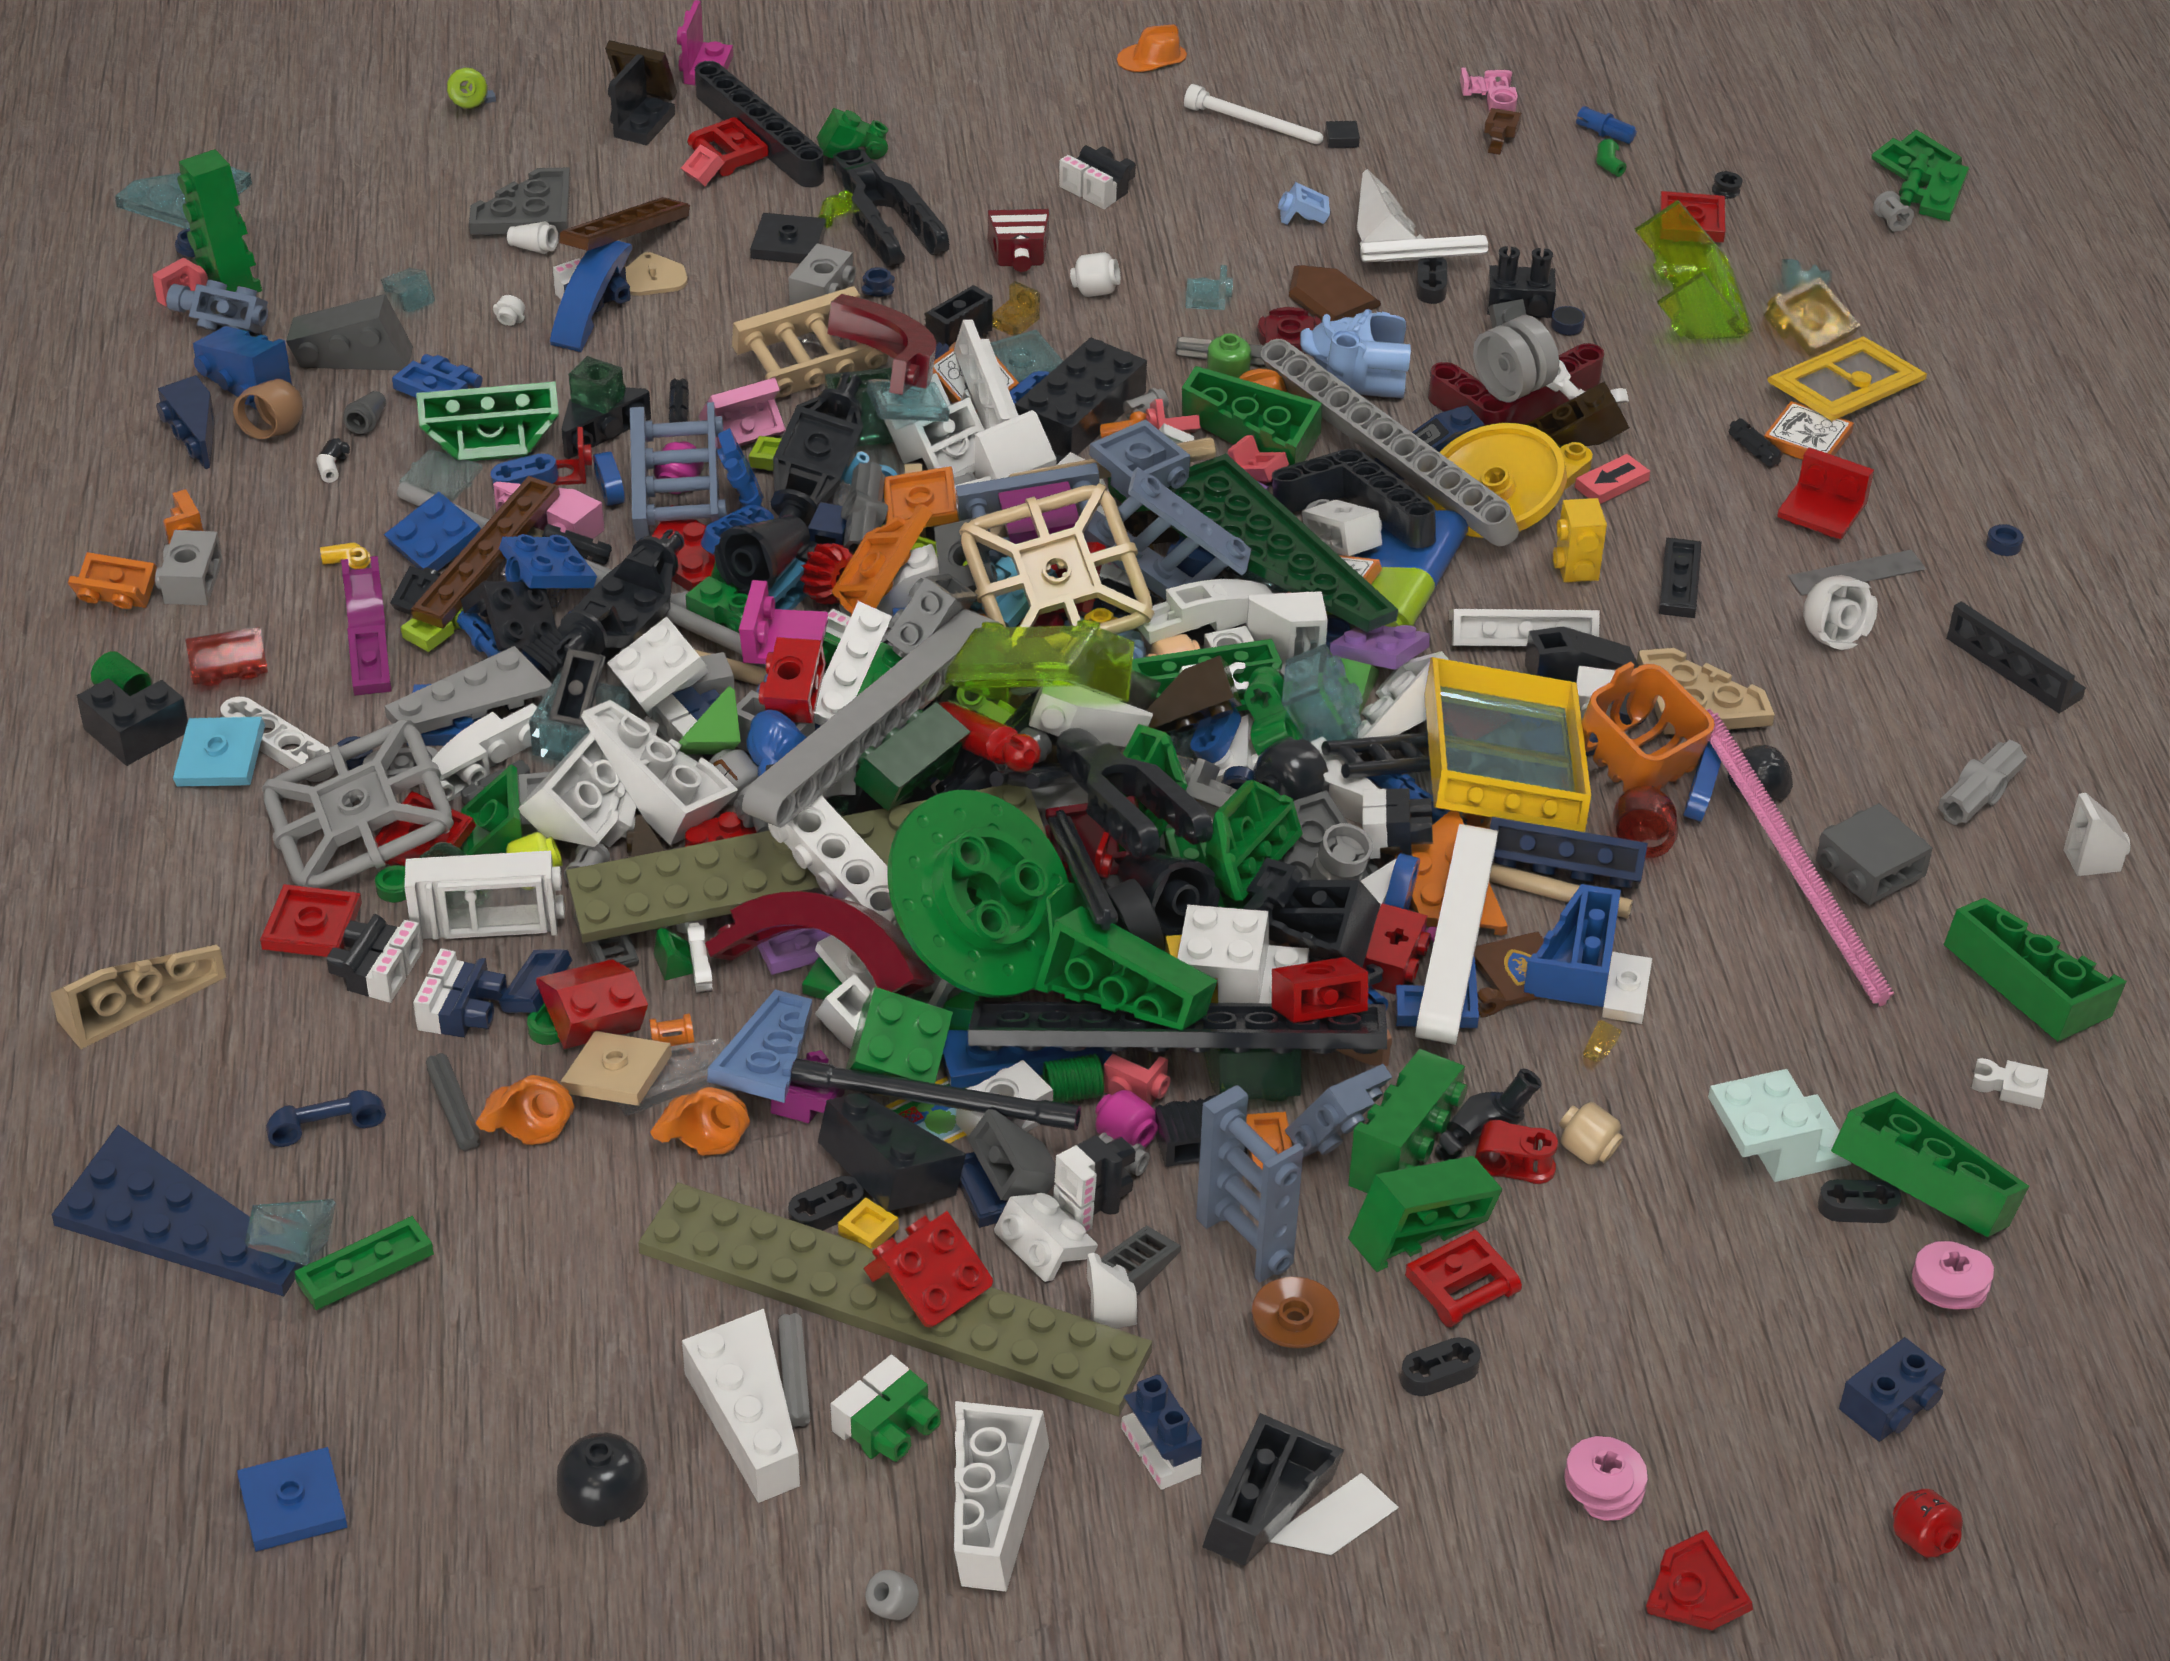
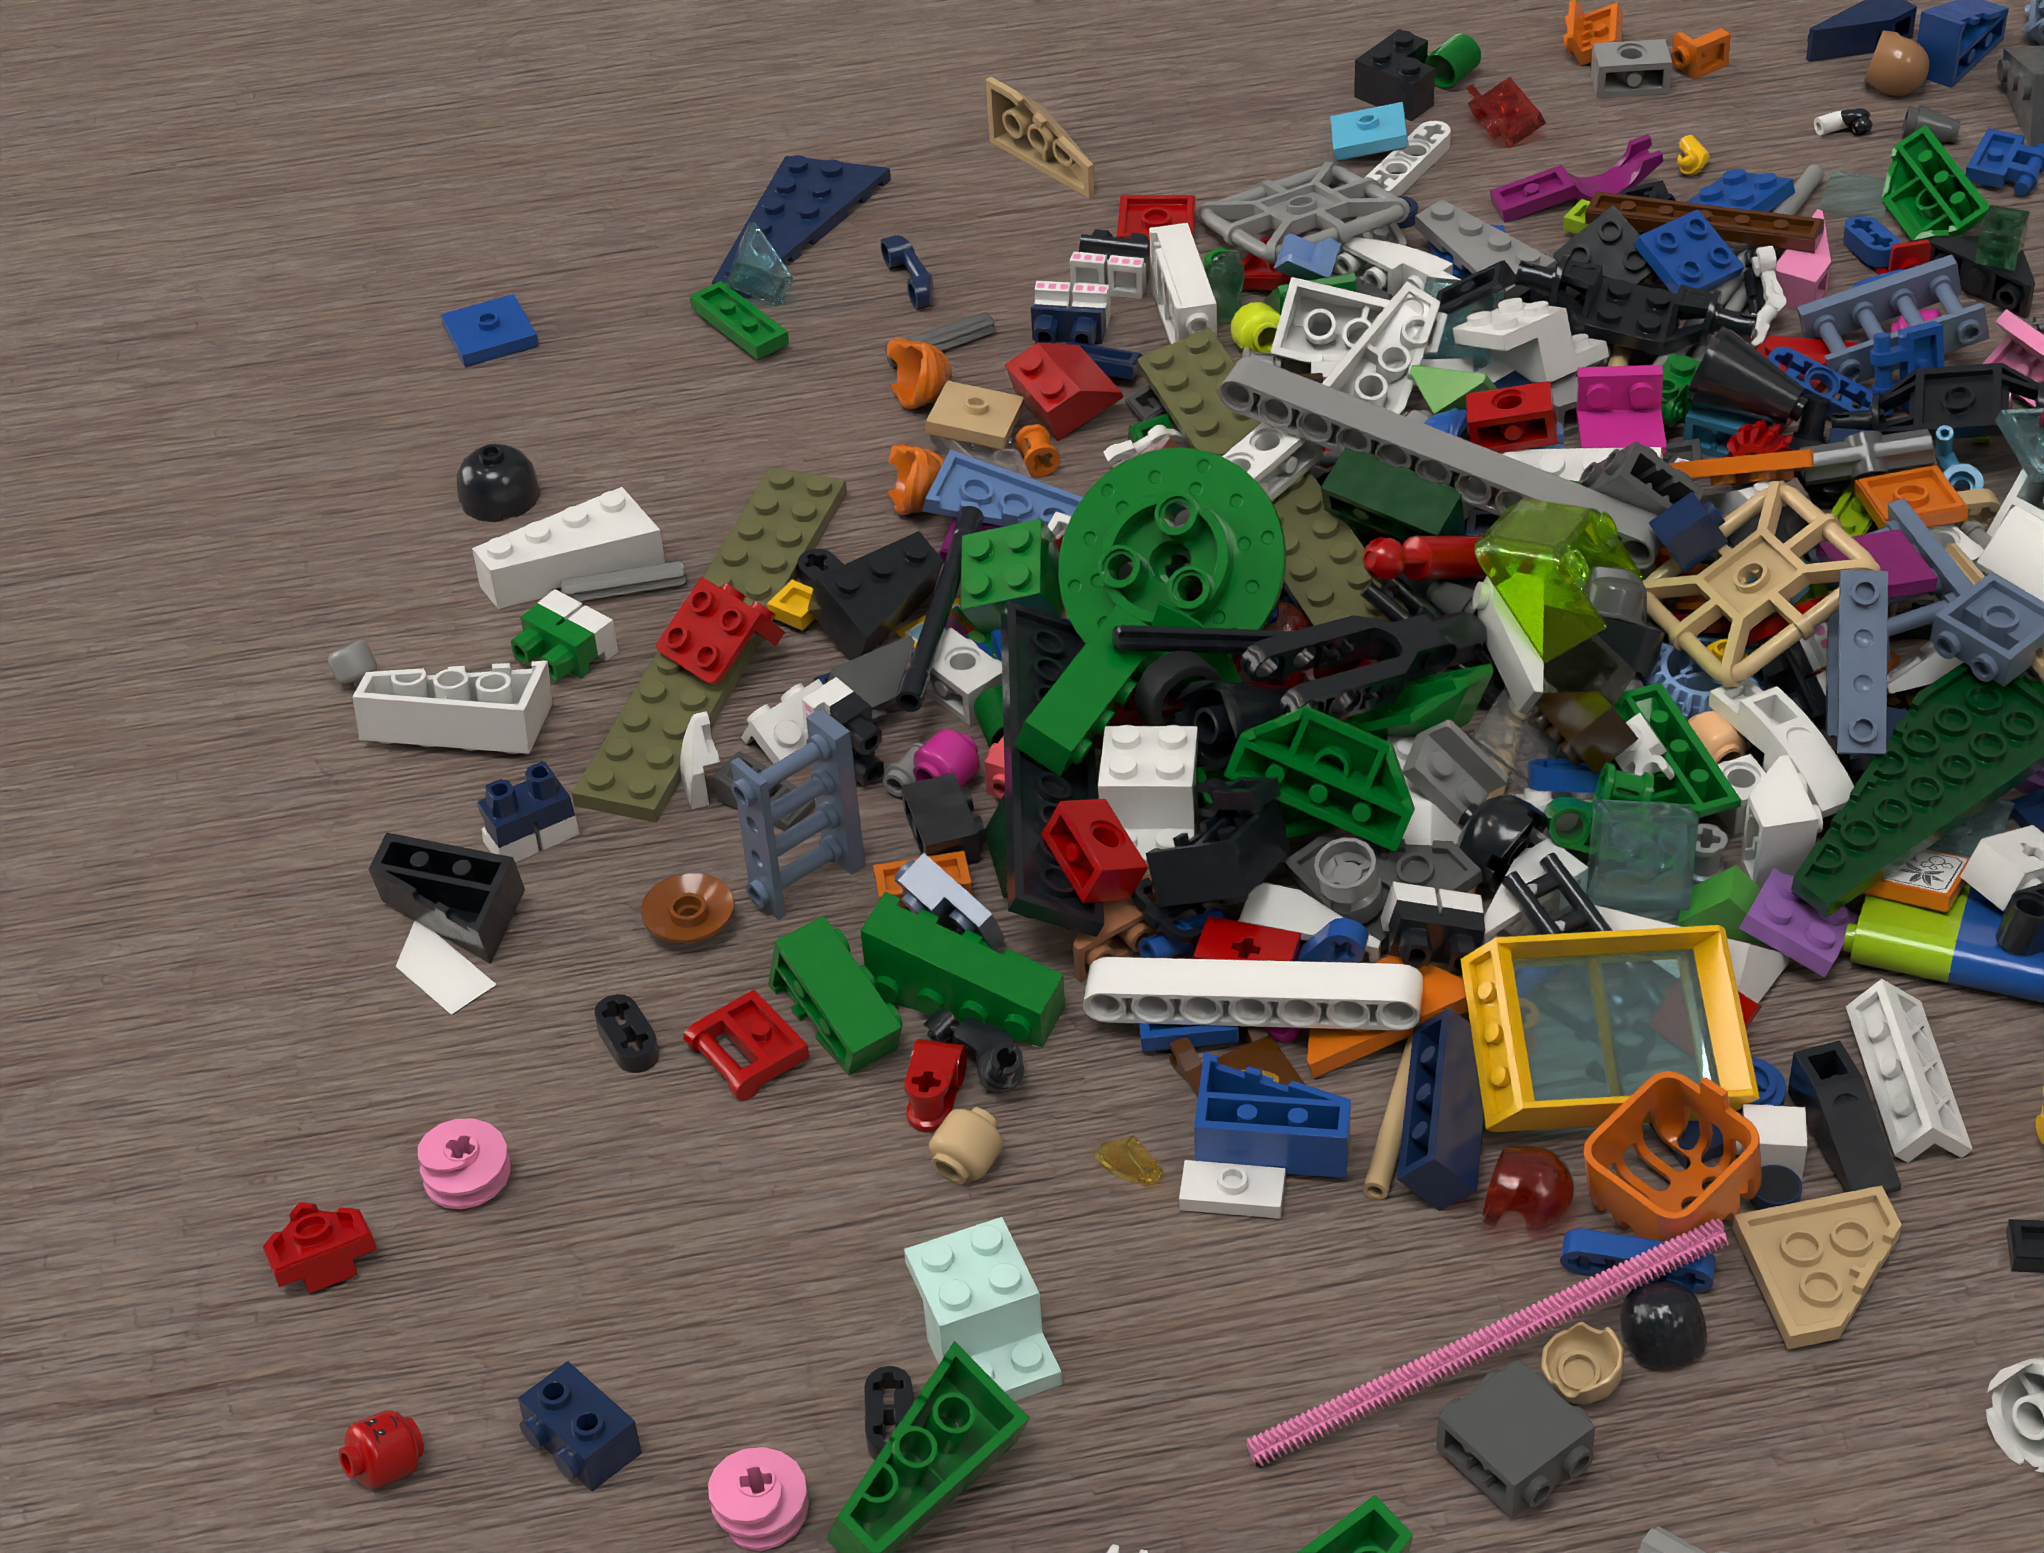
camera: 90 degrees right, 0 degrees up
(470, 793) = (1306, 259): none -> medium blue panel
(610, 534) = (1765, 267): none -> white piece
(998, 589) = (1690, 531): none -> dark blue brick
(1807, 811) = (1583, 1363): none -> tan hair

